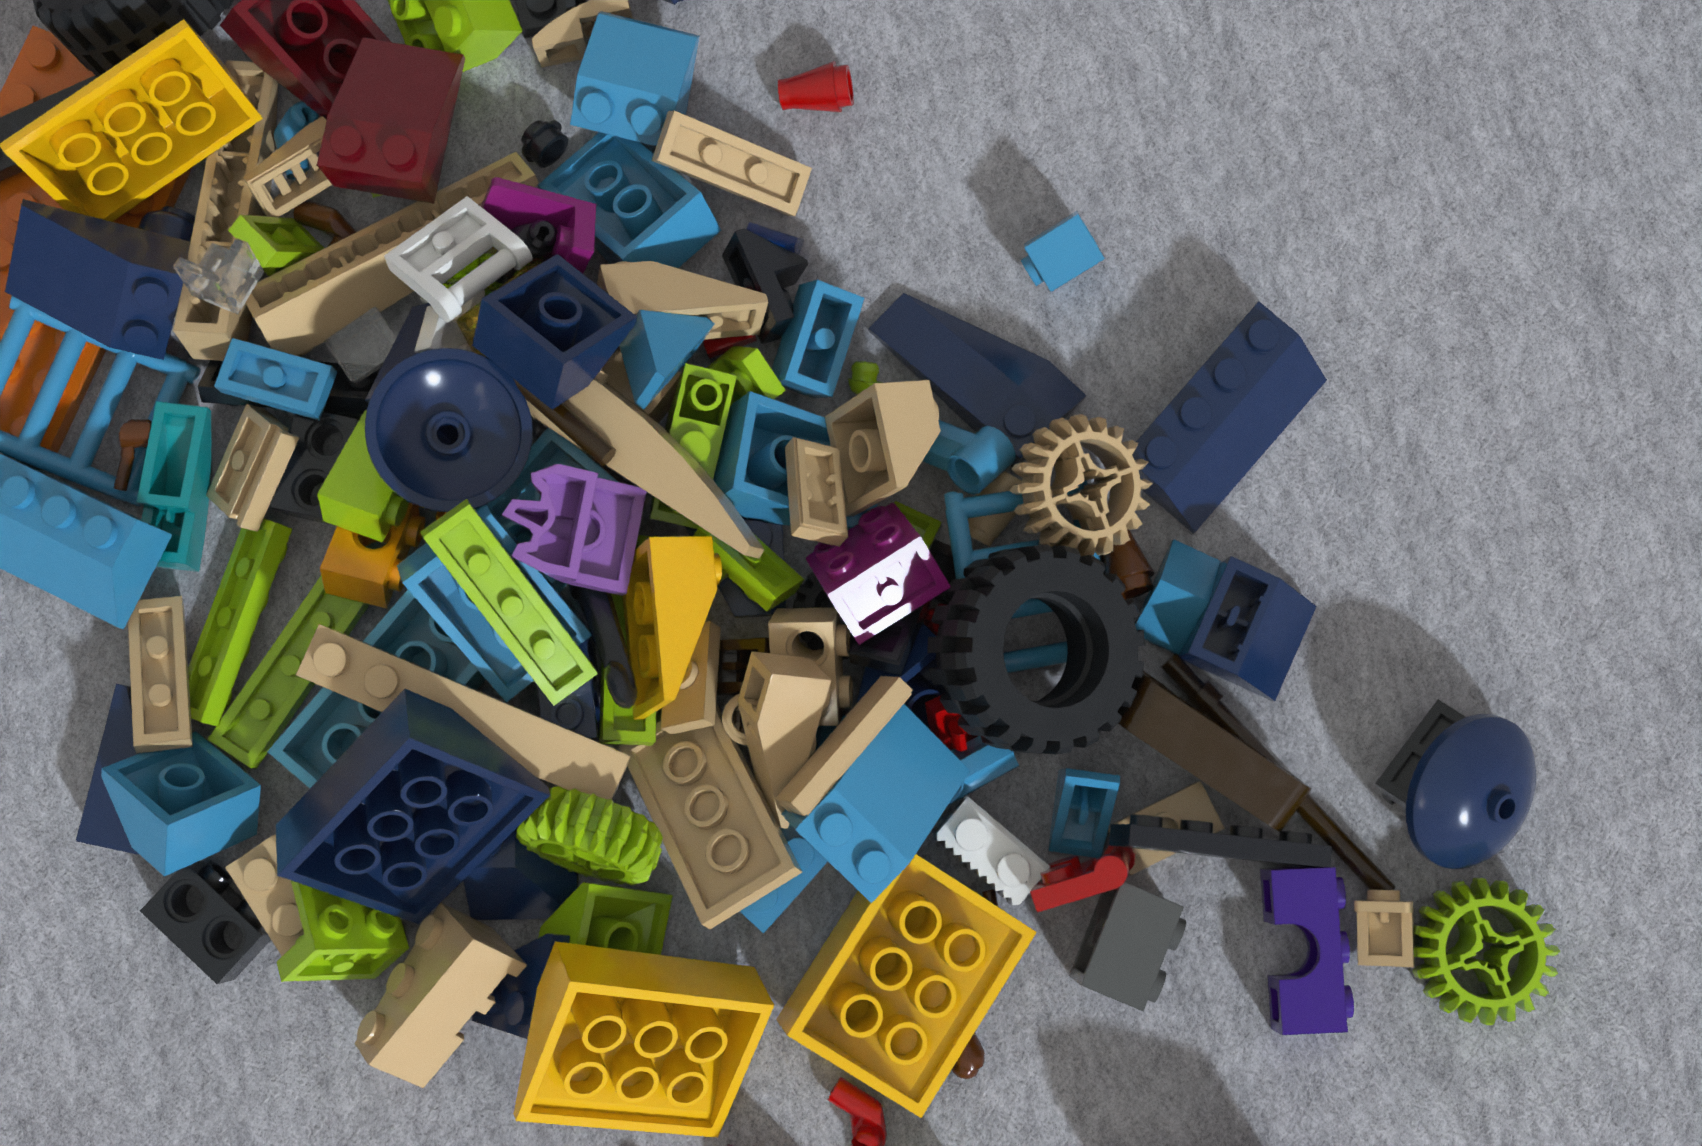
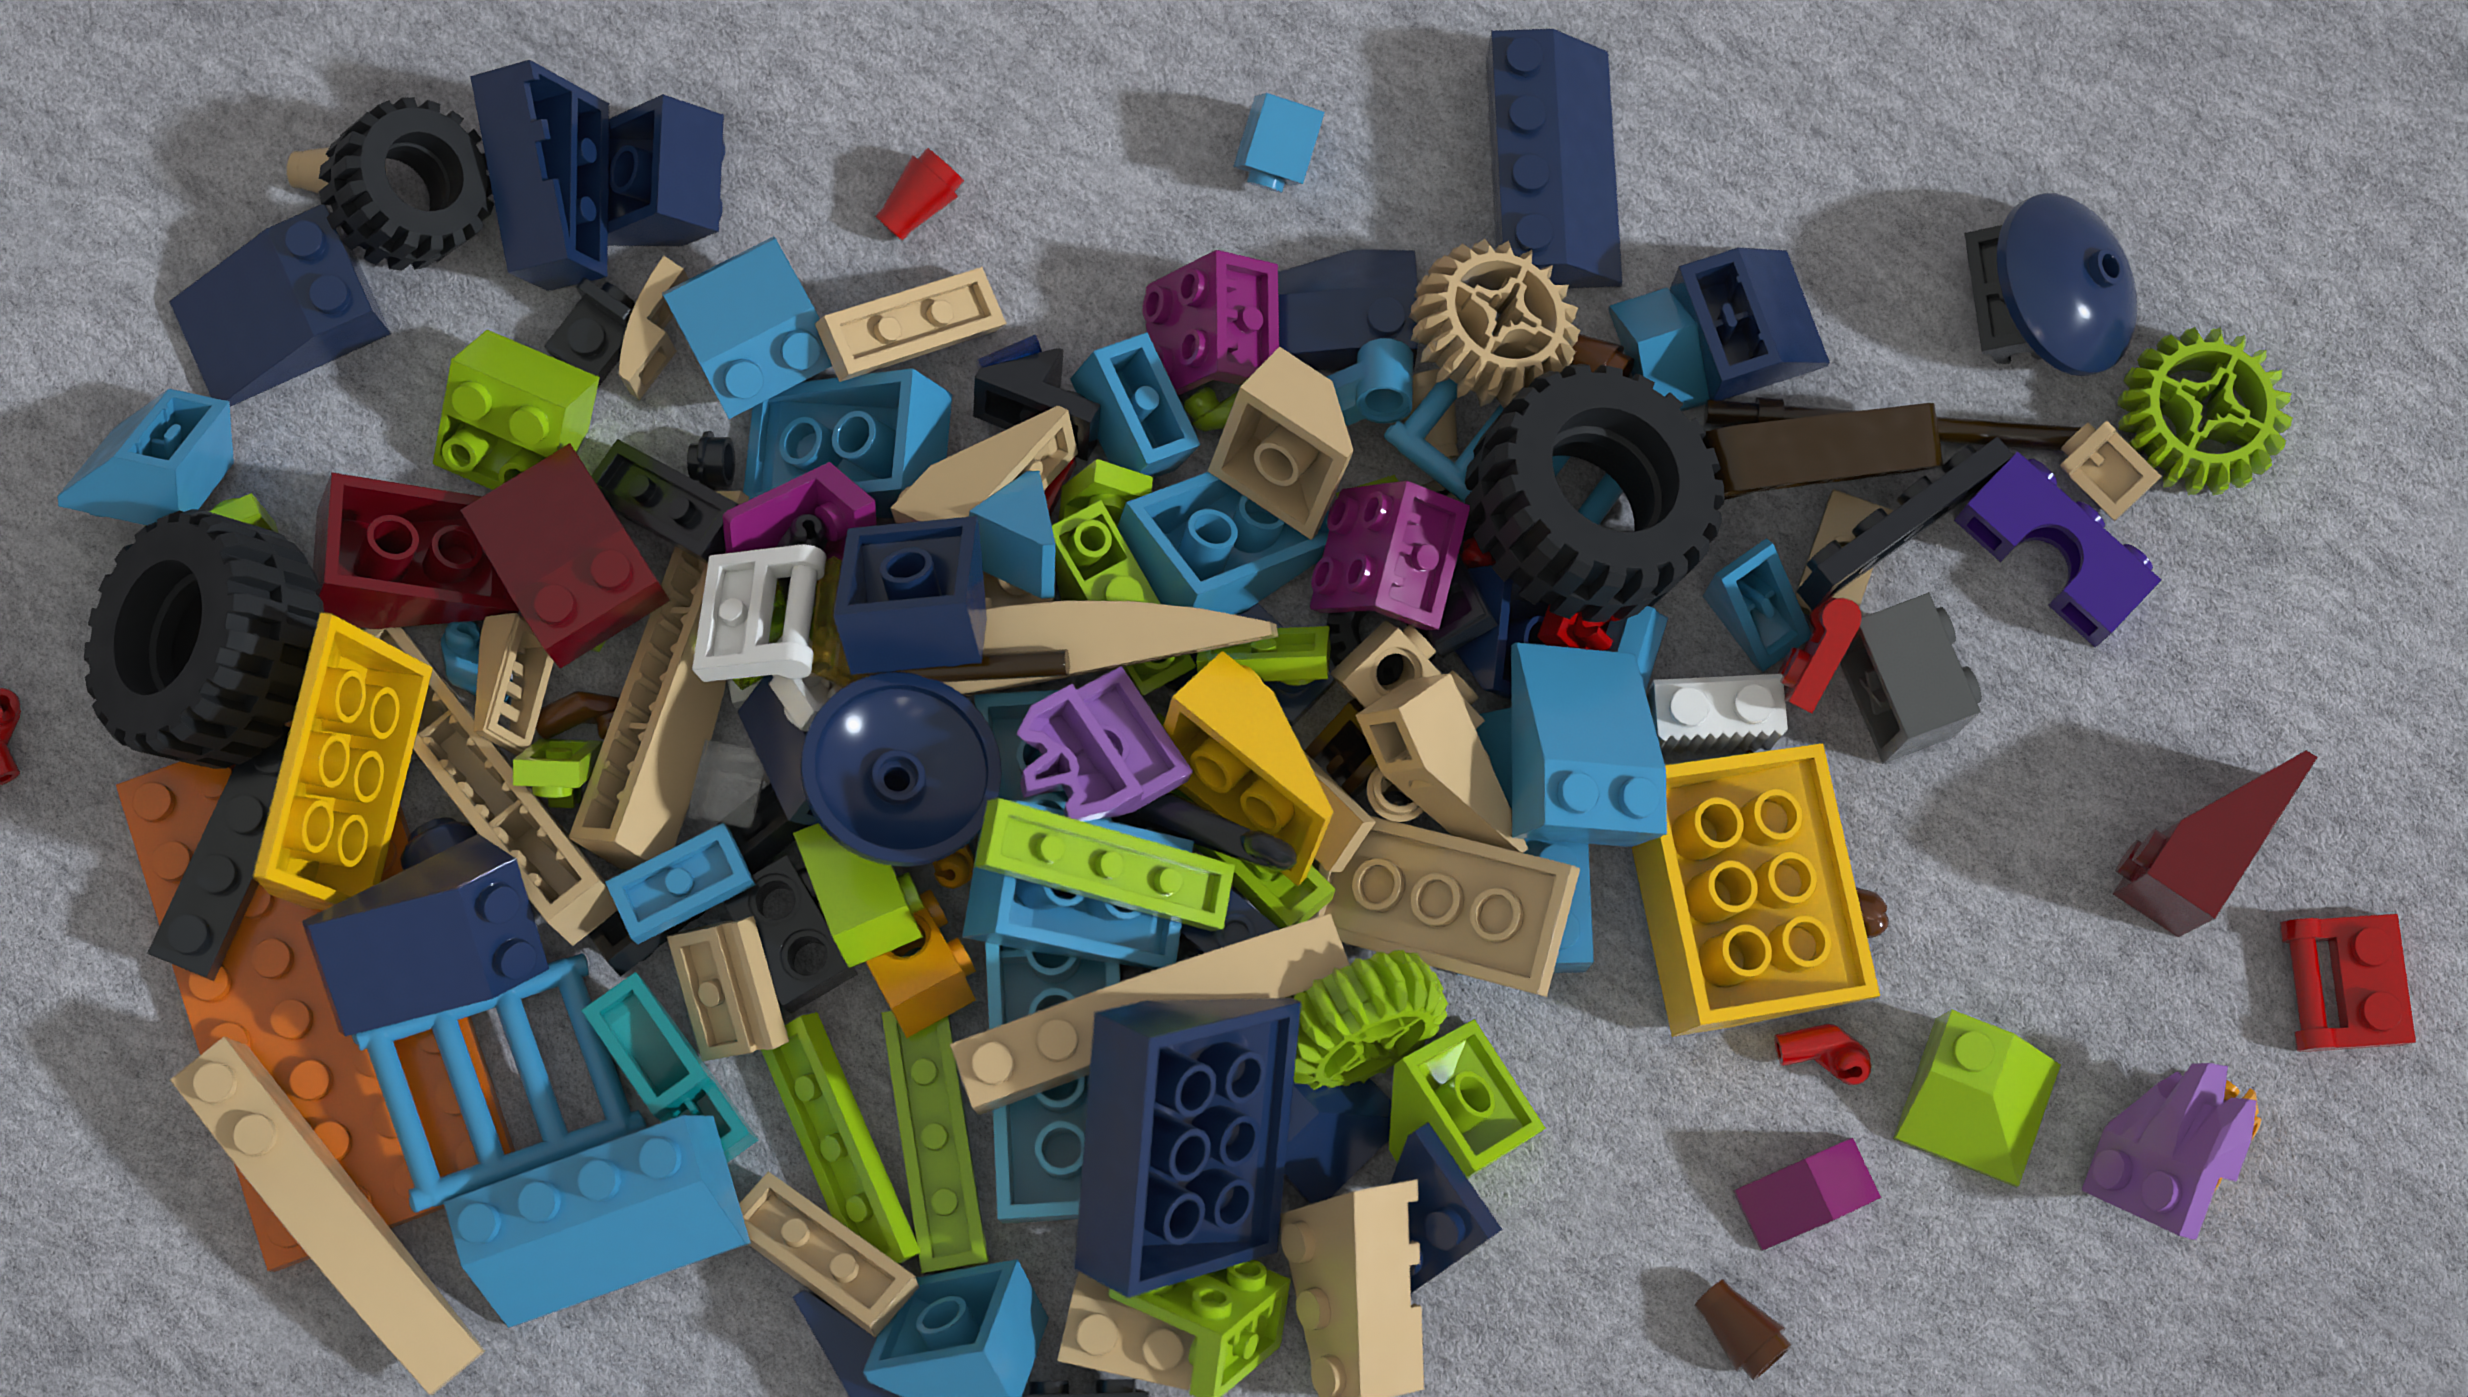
camera: 45 degrees left, 5 degrees down
(132, 435) = (585, 1064): reddish brown hand -> none
(223, 275) = (548, 829): clear panel -> none
(484, 137) = (663, 501): none -> black plate
(639, 1041) = (1578, 1155): yellow slope -> none
(816, 492) = (1271, 535): tan plate -> none
(844, 745) = (1513, 721): tan tile -> none
(915, 328) = (1214, 319): none -> magenta bracket

